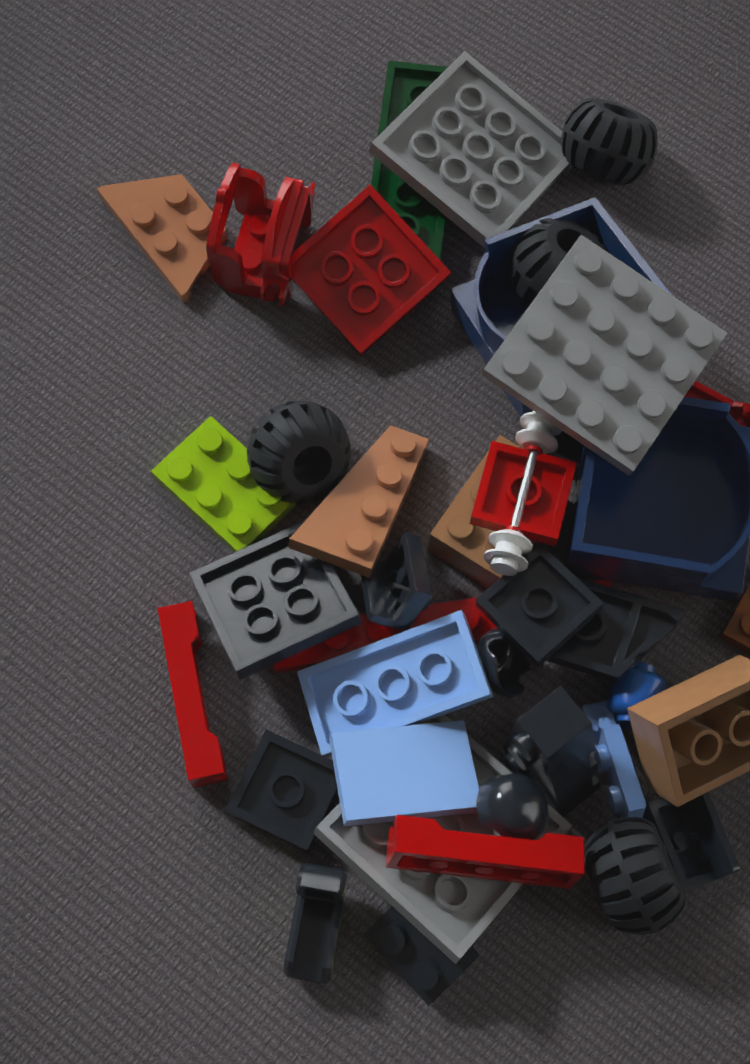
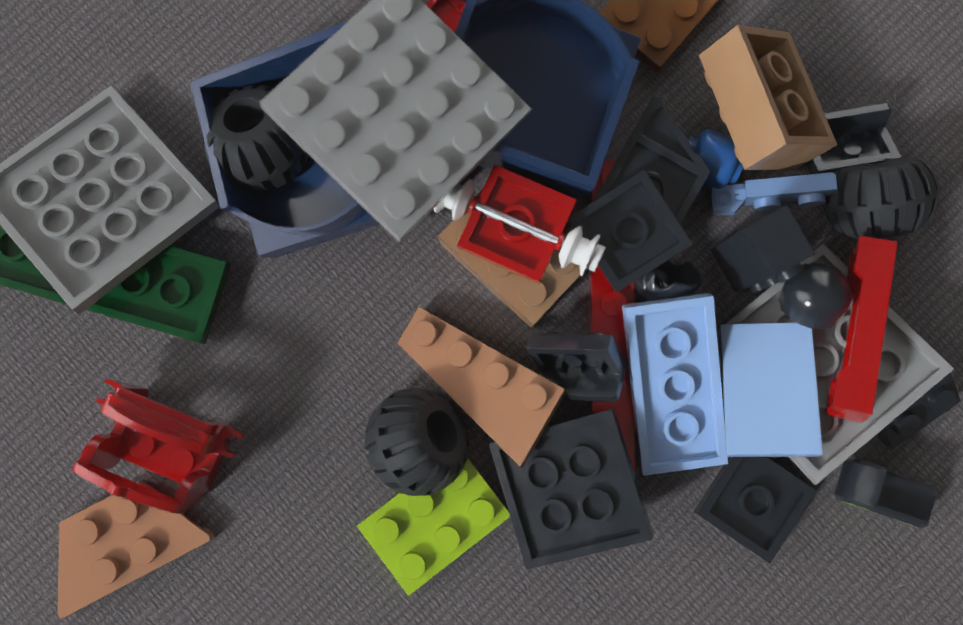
camera: 80 degrees left, 15 degrees up
(200, 747) = (703, 579): red piece -> none
(366, 270) = (219, 340): red plate -> none
(609, 141) = (110, 55): black wheel -> none

